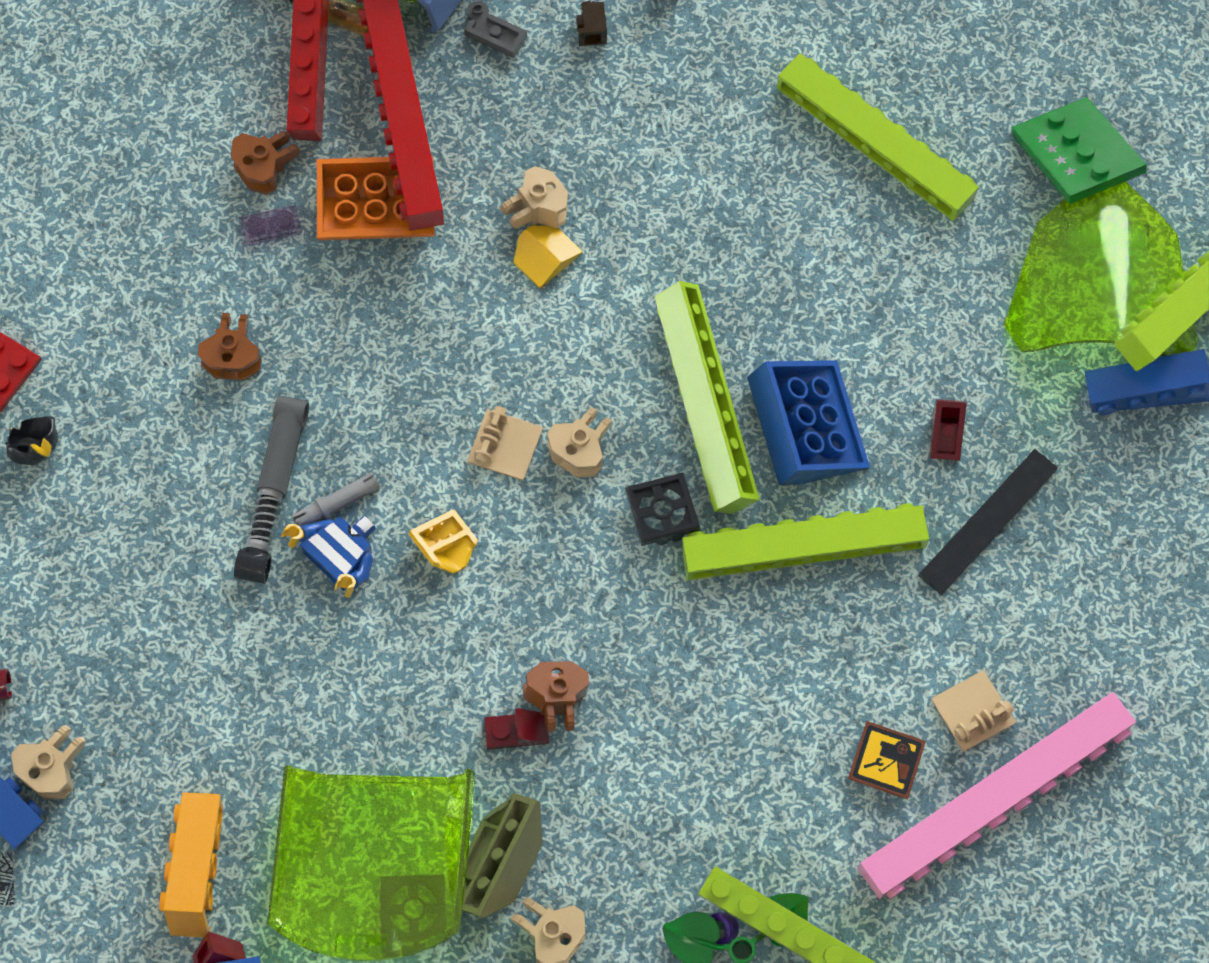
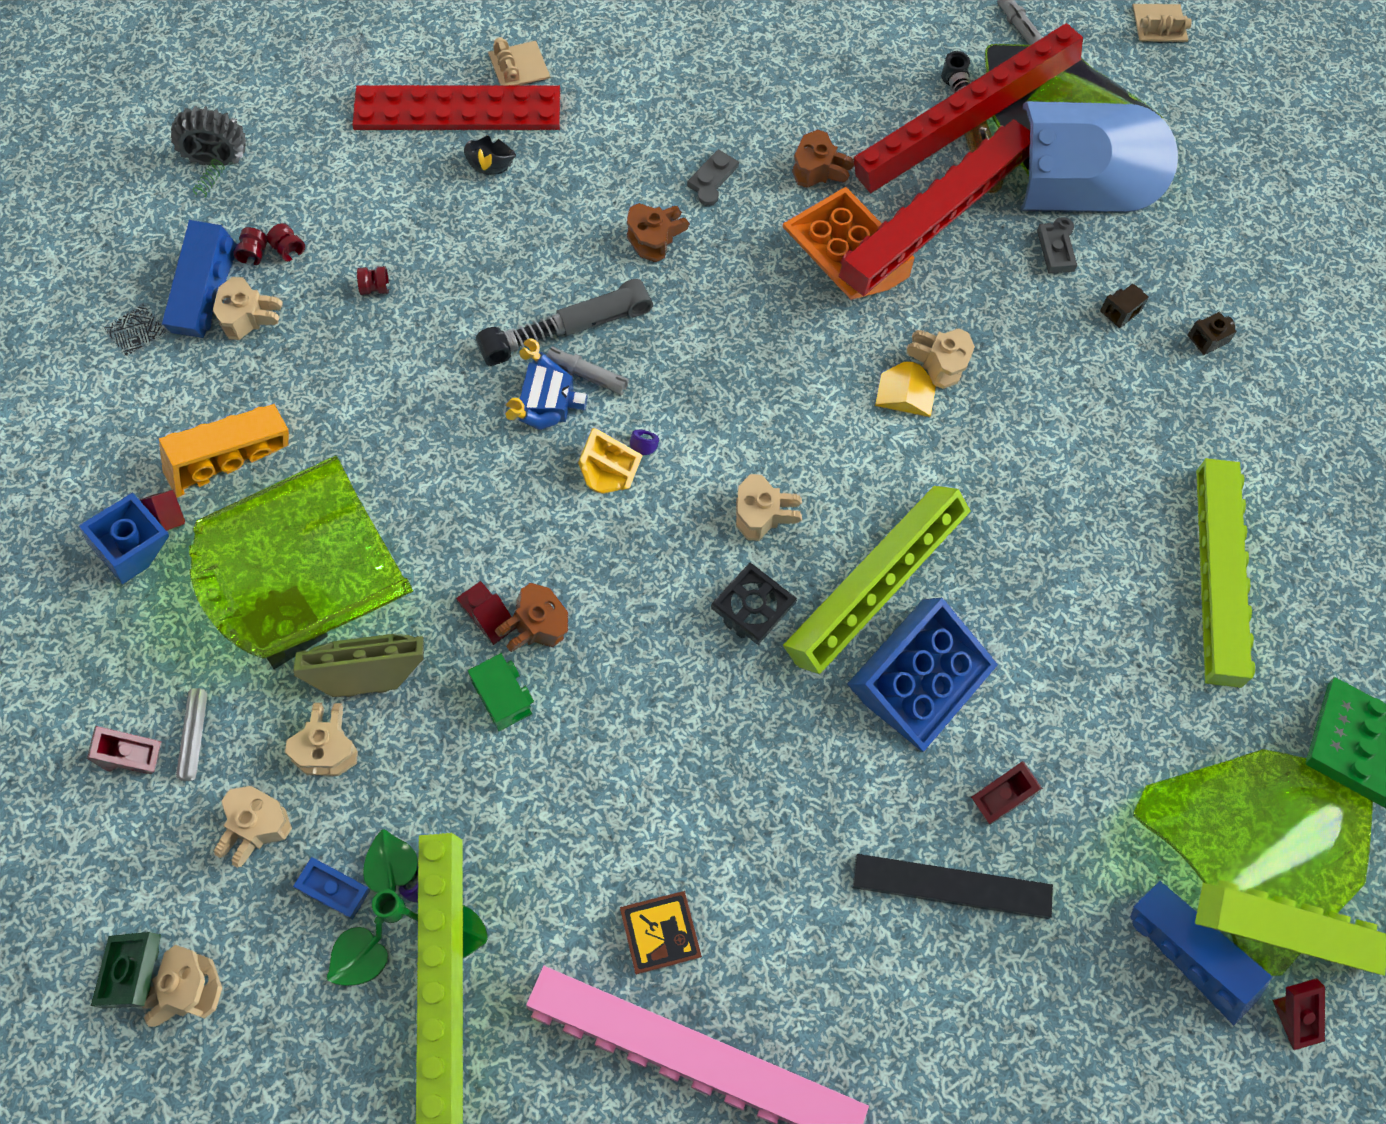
camera: 55 degrees right, 5 degrees down
(99, 630) = (372, 280): none -> dark red wheel
(202, 261) = (712, 176): none -> dark grey hinge
(270, 225) = (775, 200): clear purple plate -> none
(443, 504) = (643, 445): none -> dark purple piece
(505, 444) = (723, 457): tan hinge -> none
(601, 760) = (500, 691): none -> green brick
(804, 541) = (814, 738): lime brick -> none
(974, 710) = (763, 985): tan hinge -> none

